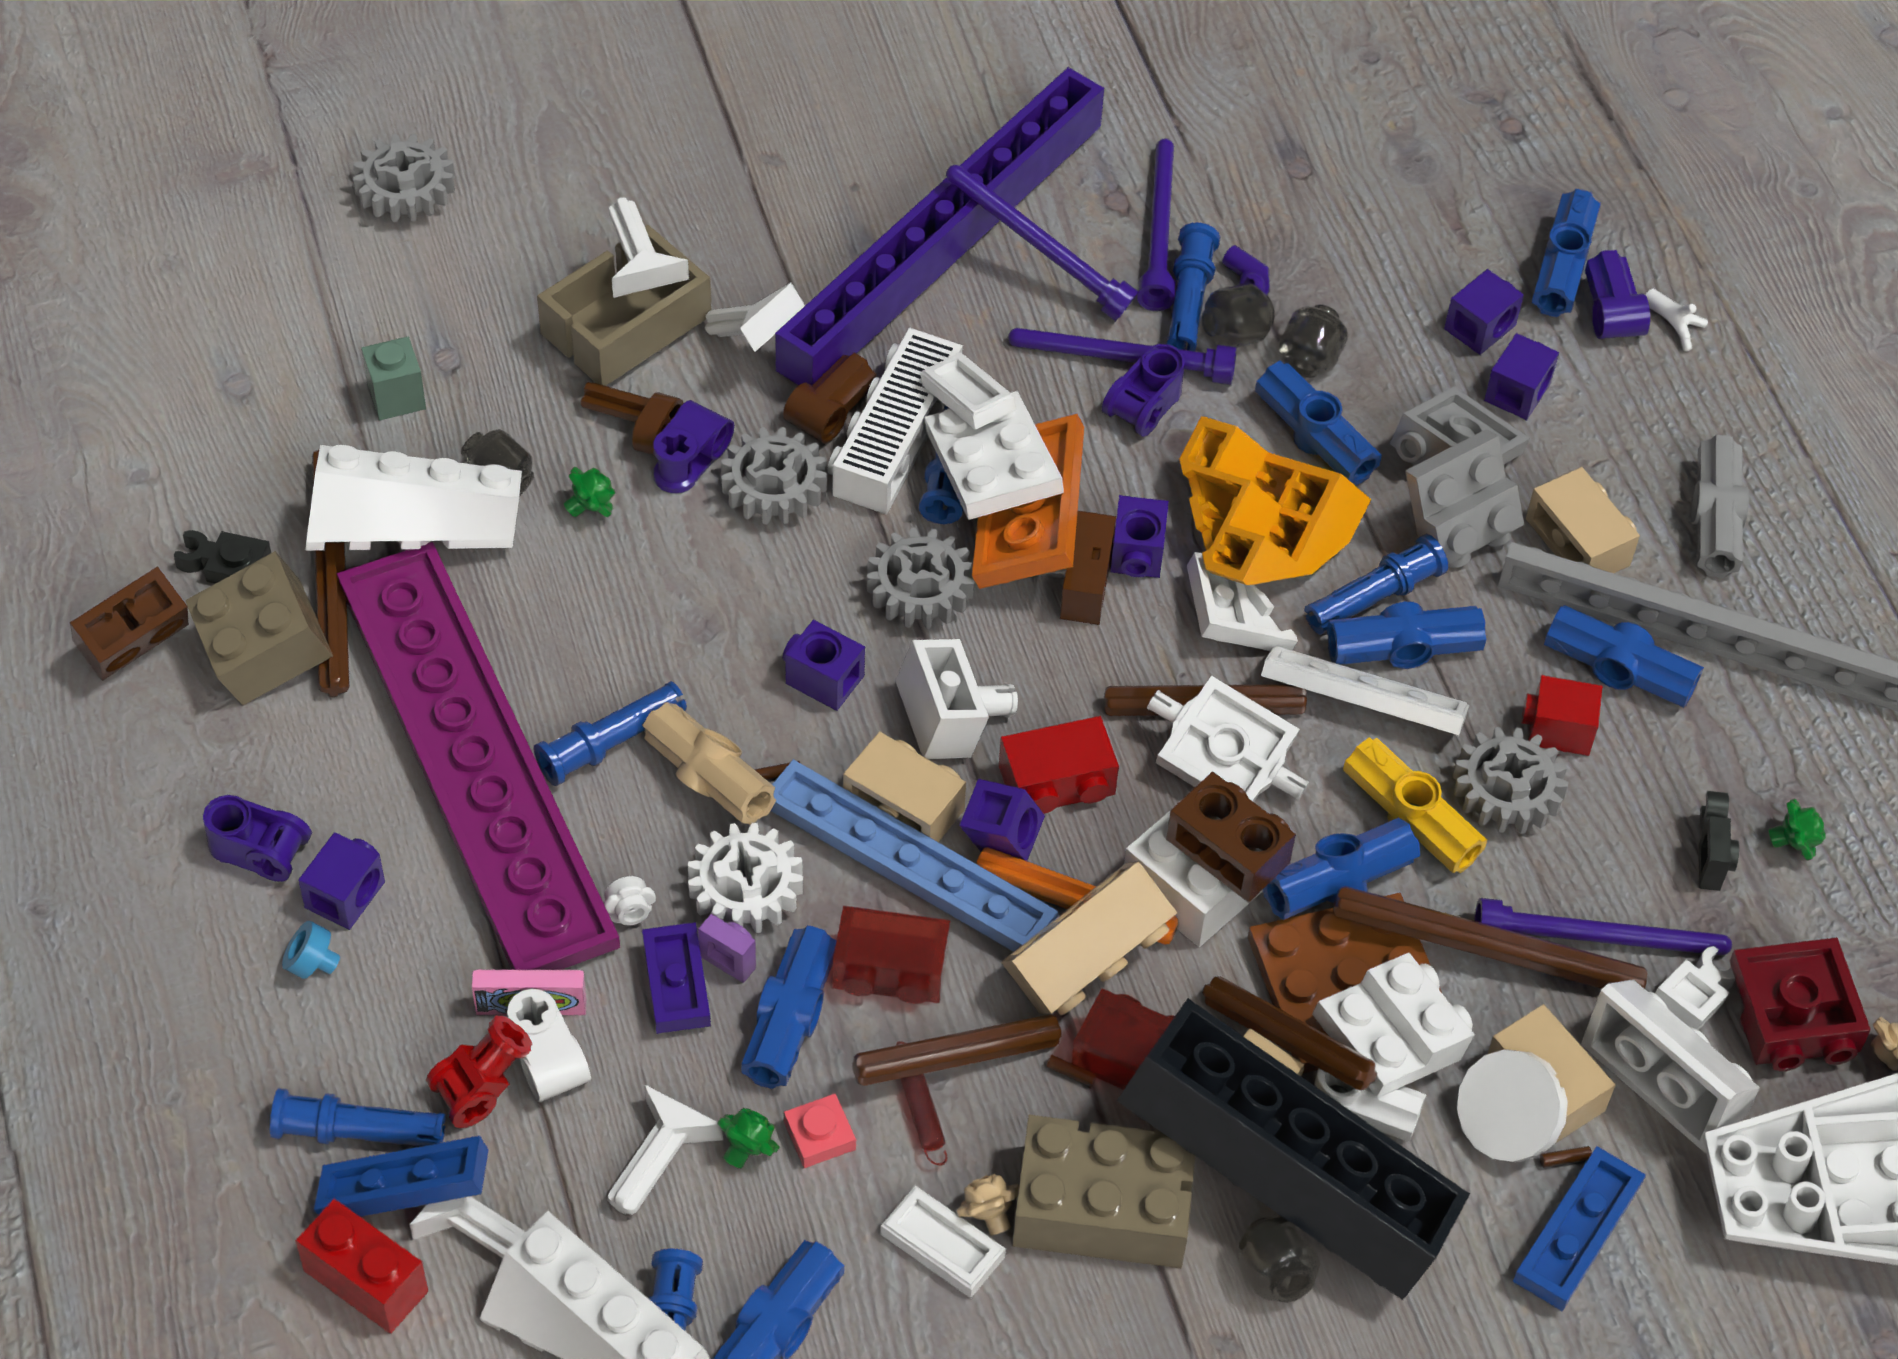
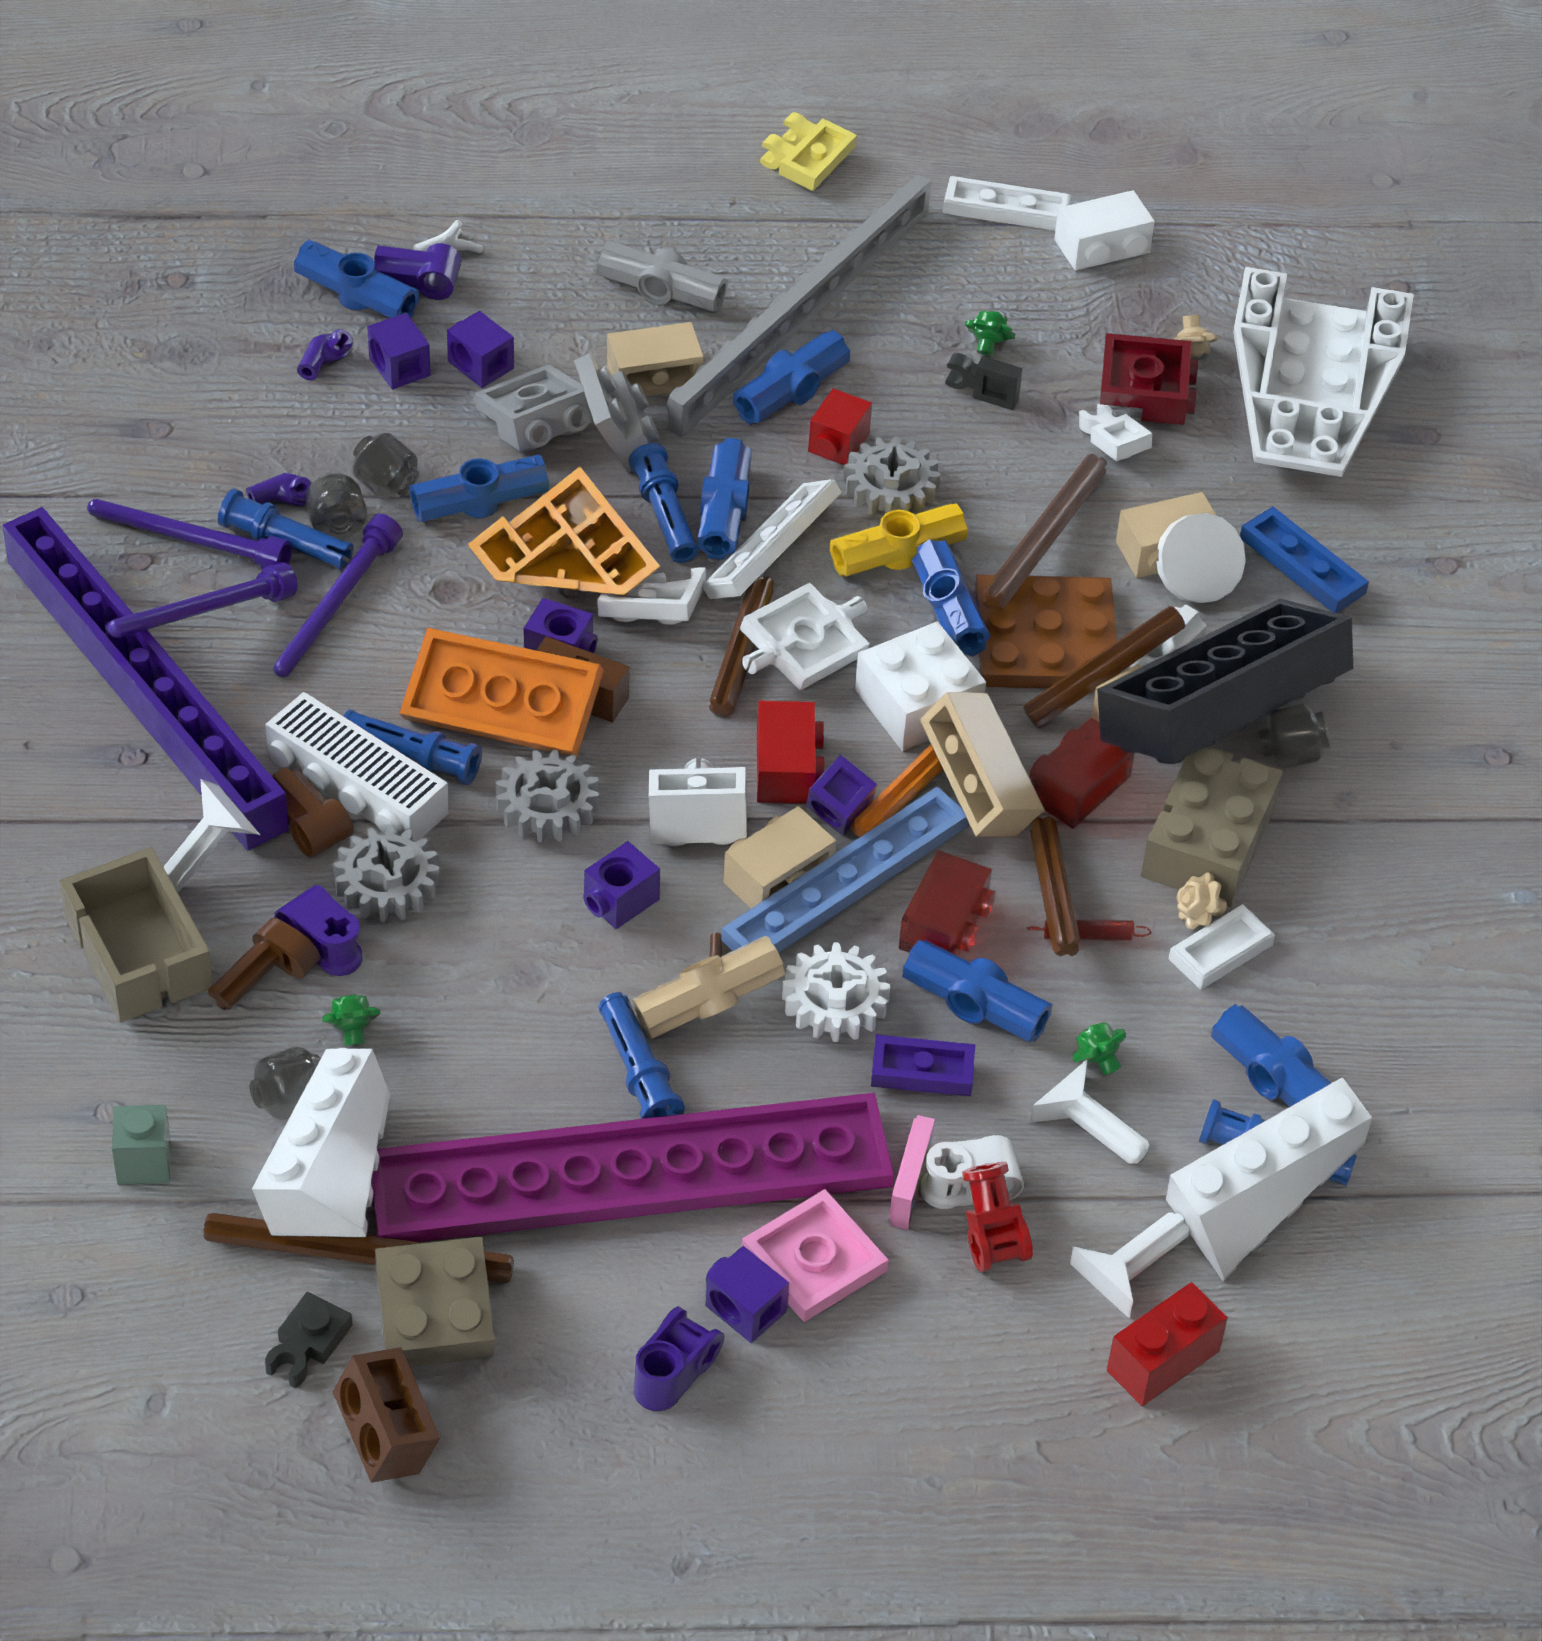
camera: 75 degrees left, 5 degrees down
(309, 951) = (816, 1335): dark azure tile -> none
(330, 1119) = (1003, 1347): blue pin -> none
(405, 1177) = (1092, 1295): blue plate -> none
(407, 930) = (817, 1253): none -> bright pink plate
(629, 900) = (834, 1080): white plate -> none
(644, 266) = (125, 885): white piece -> none
(728, 947) = (908, 1015): medium lavender plate -> none
(819, 1130) = (1097, 1002): coral plate -> none
(968, 391) = (376, 690): white tile -> none
(995, 464) = (451, 696): white plate -> none
(1071, 1070) = (1081, 826): reddish brown piece -> none
(1147, 388) = (395, 587): dark purple piece -> none
(1224, 843) = (936, 631): reddish brown brick -> none
(1398, 1022) = (1115, 593): white plate -> none
(1459, 255) = (324, 350): none -> dark purple arm
(1496, 914) = (1019, 522): dark purple piece -> none
(1667, 1061) = (1185, 461): white slope -> none

